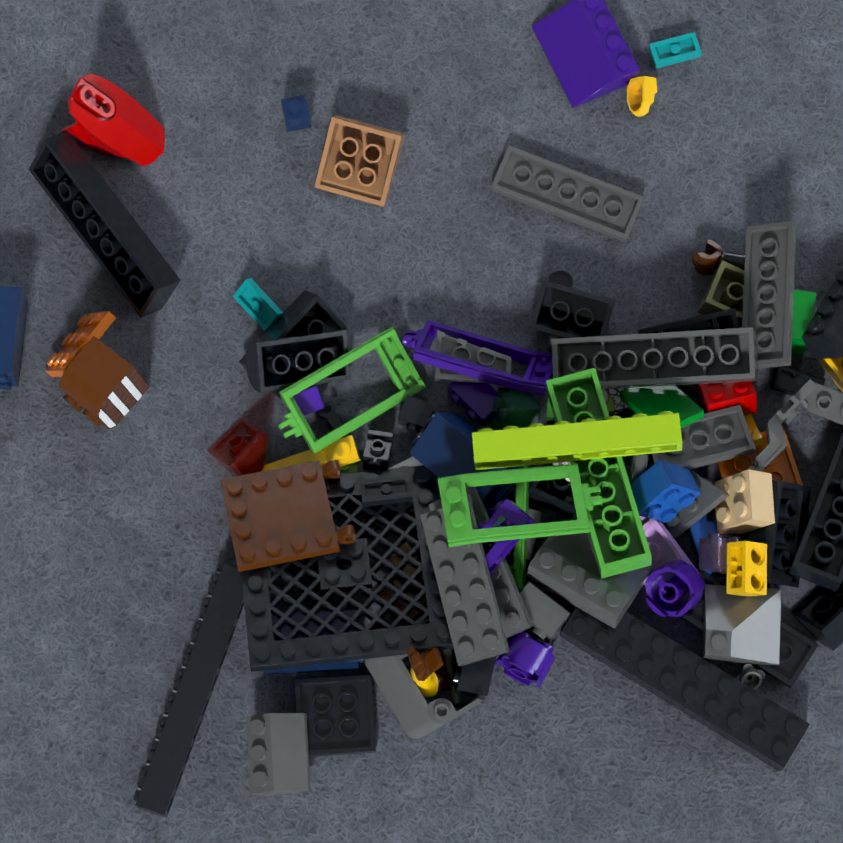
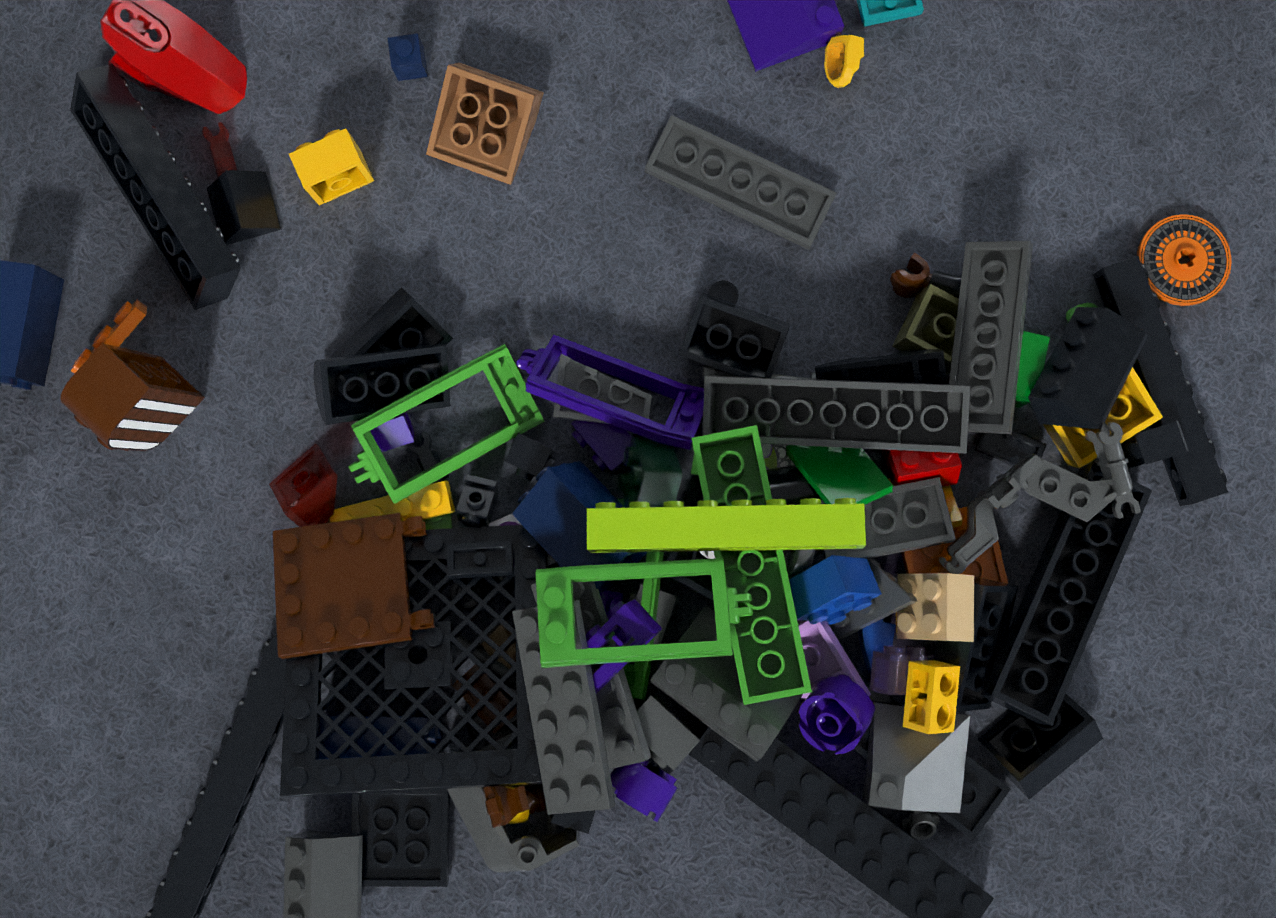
camera: 10 degrees right, 10 degrees up
(150, 195) = (220, 149): none -> clear red bar
(171, 234) = (243, 205): none -> black slope
(243, 200) = (331, 166): none -> yellow brick
(257, 304) = (342, 301): teal plate -> none

